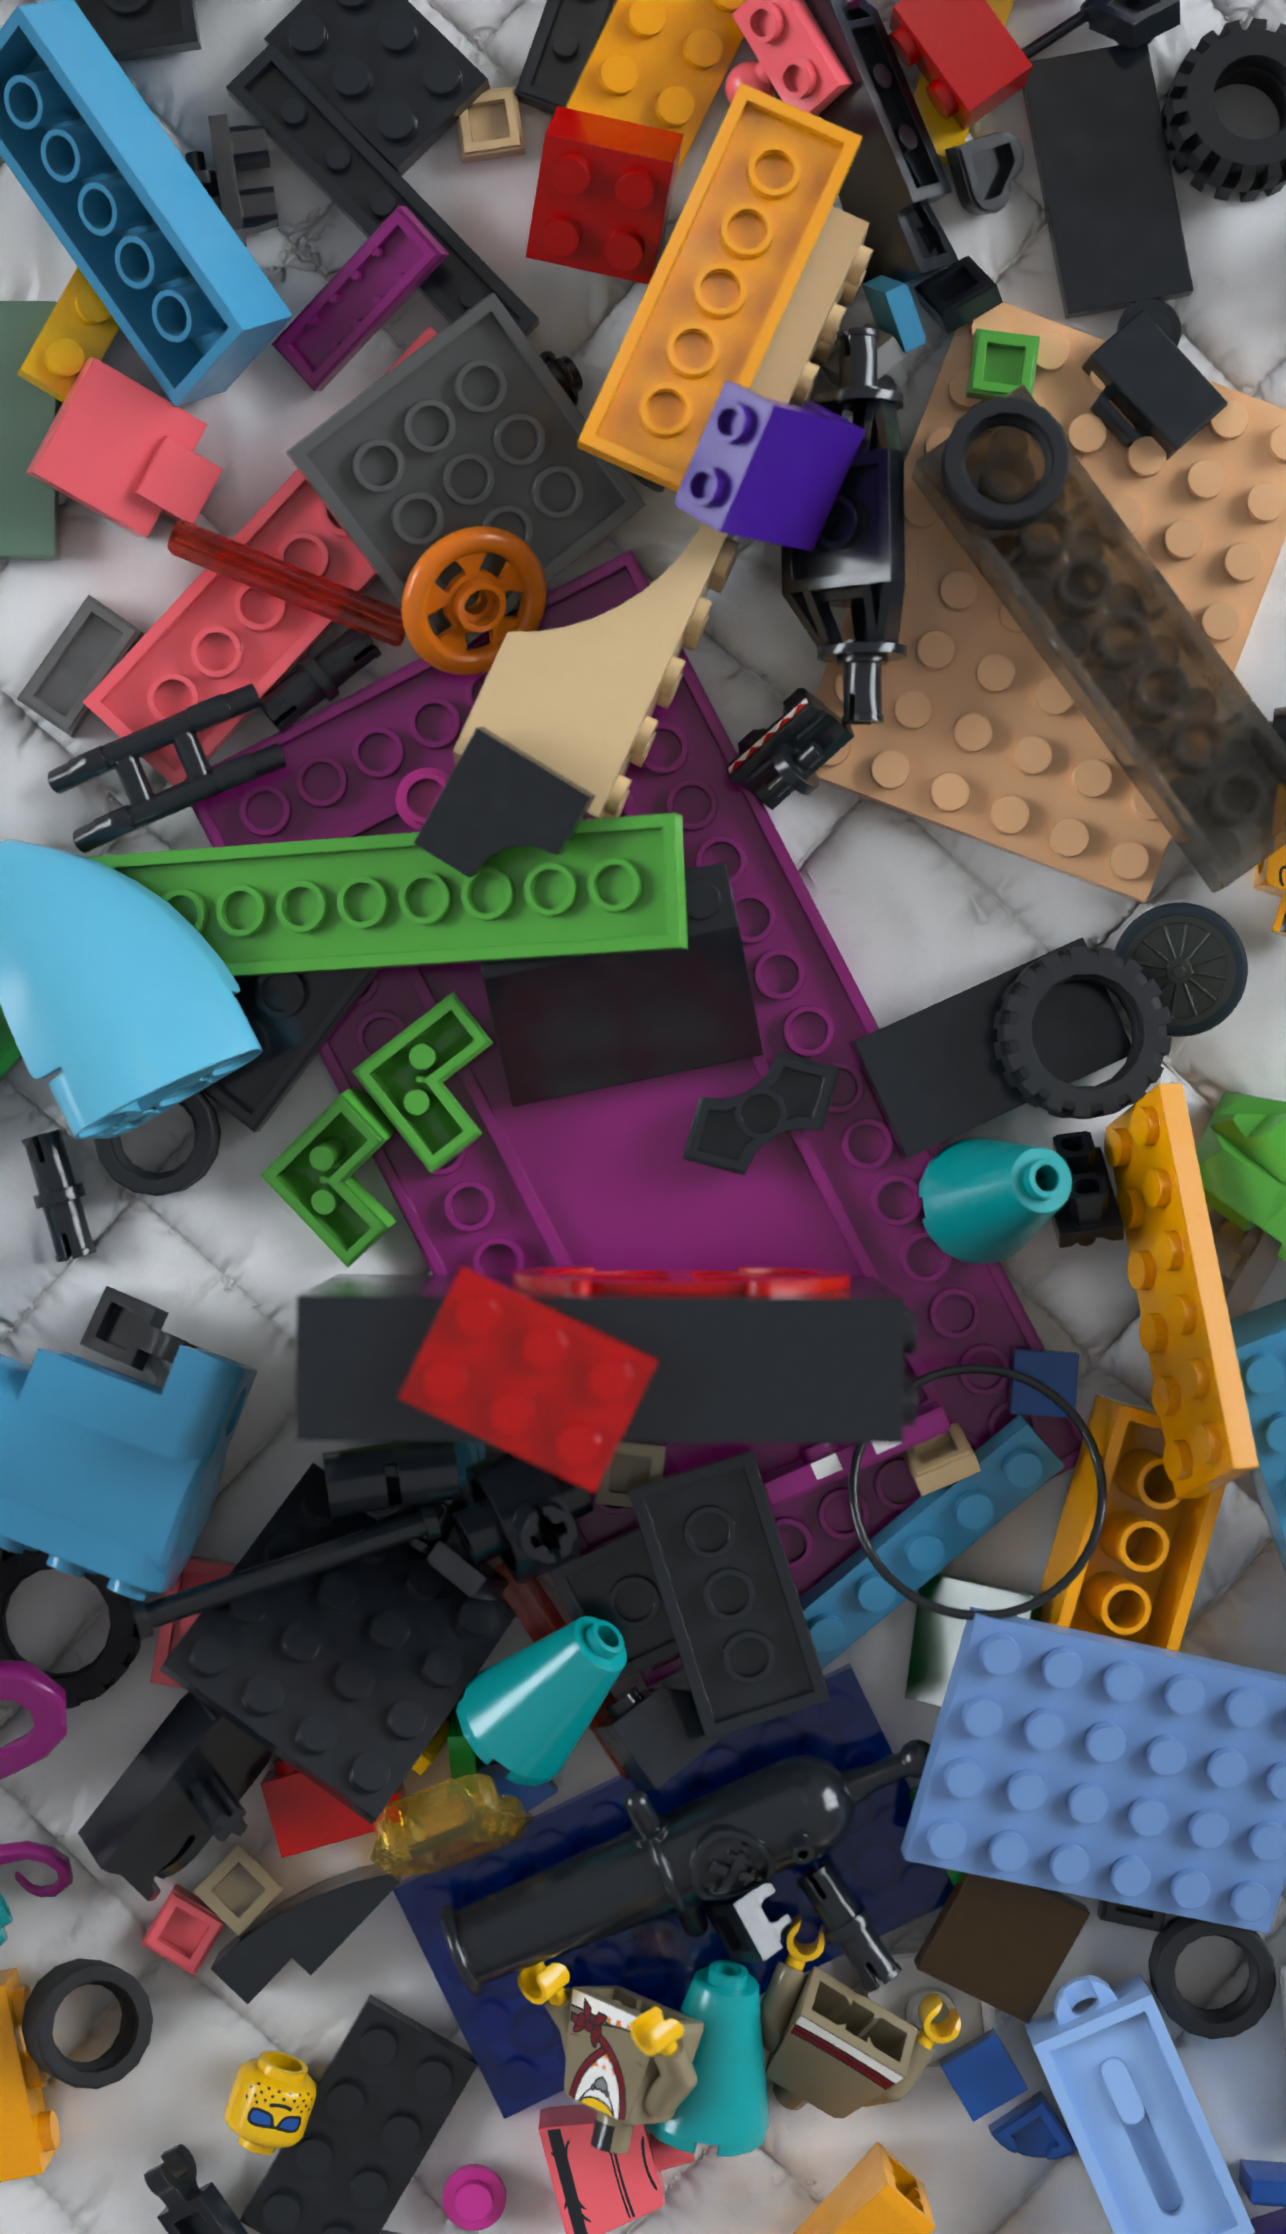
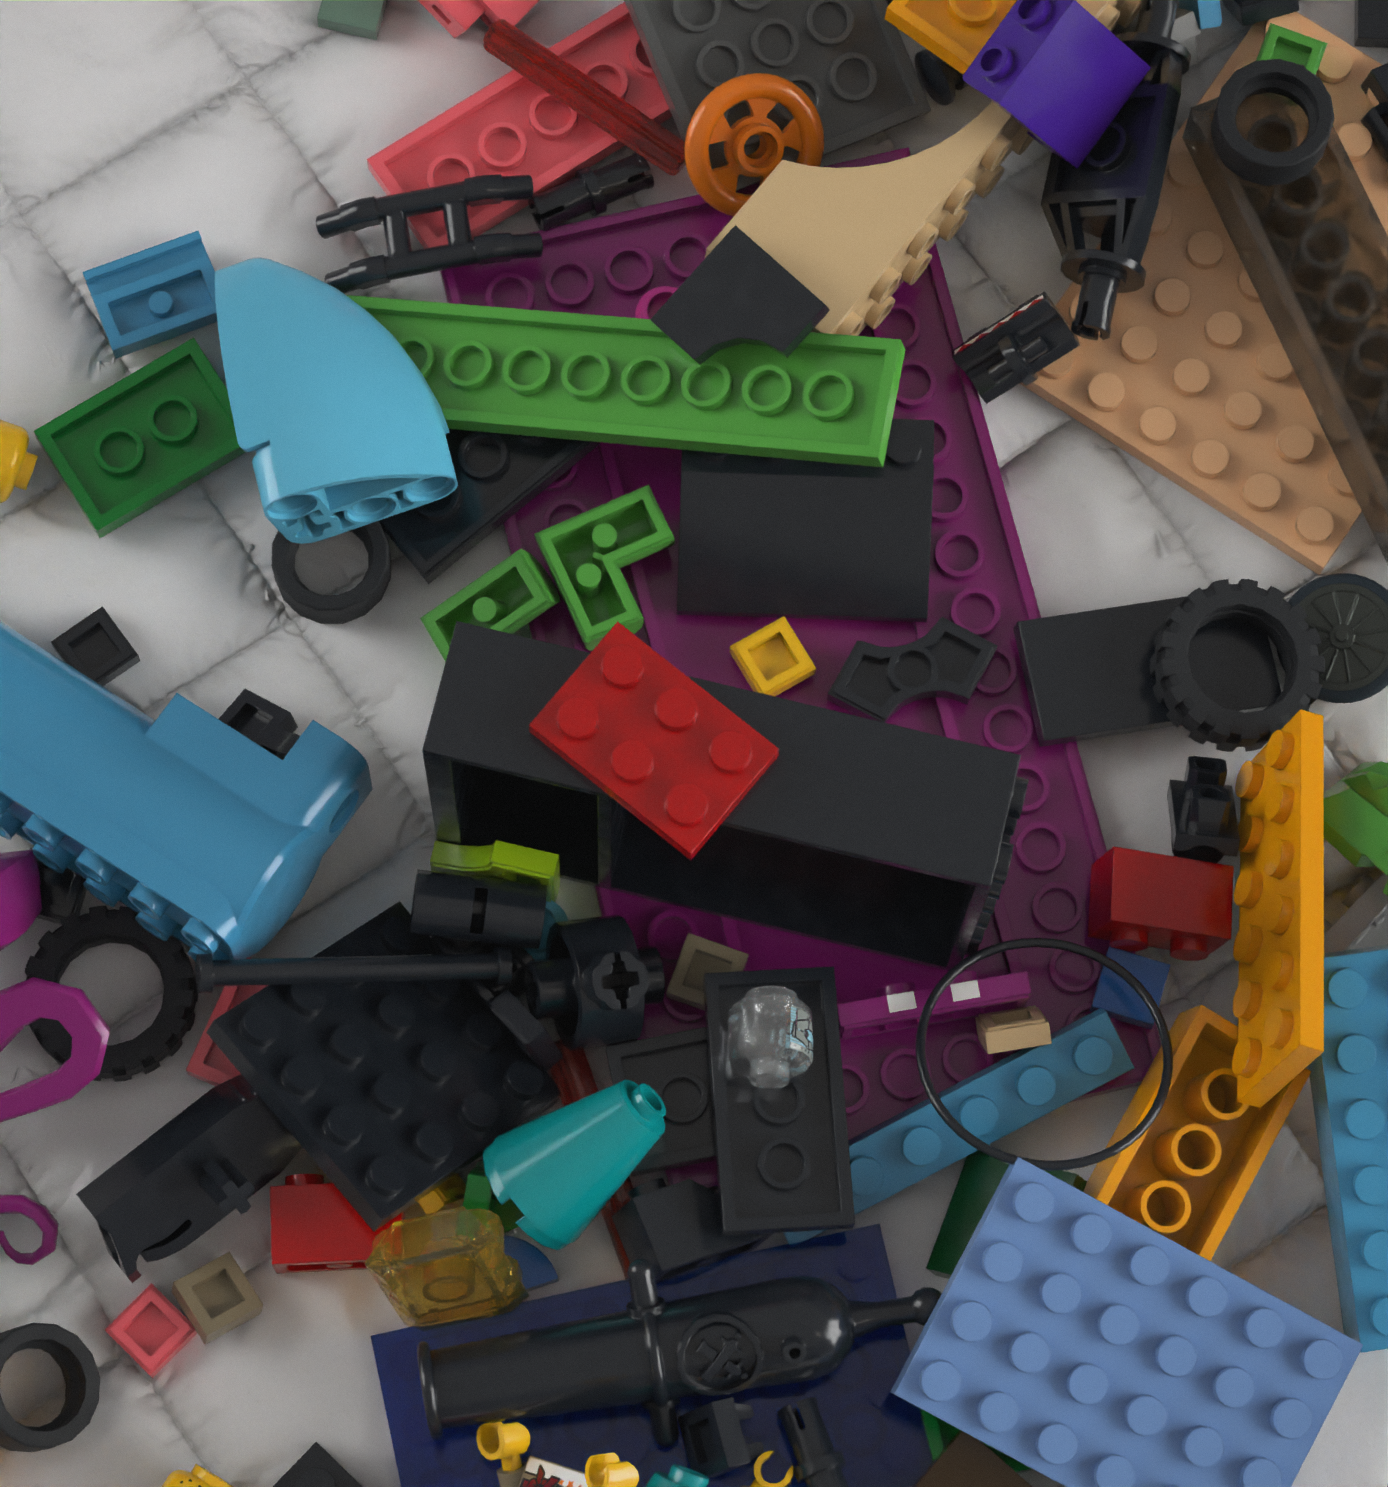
camera: 15 degrees right, 15 degrees down
(59, 1195) = (222, 595): black pin -> none
(77, 664) = (367, 129): flat silver tile -> none
(302, 1928) = (276, 1346): black slope -> none
(619, 1134) = (773, 658): none -> yellow tile
(708, 1549) = (770, 1036): none -> clear head
(991, 1197) = (1120, 791): teal cone -> none
(1057, 1293) = (1160, 903): none -> red brick

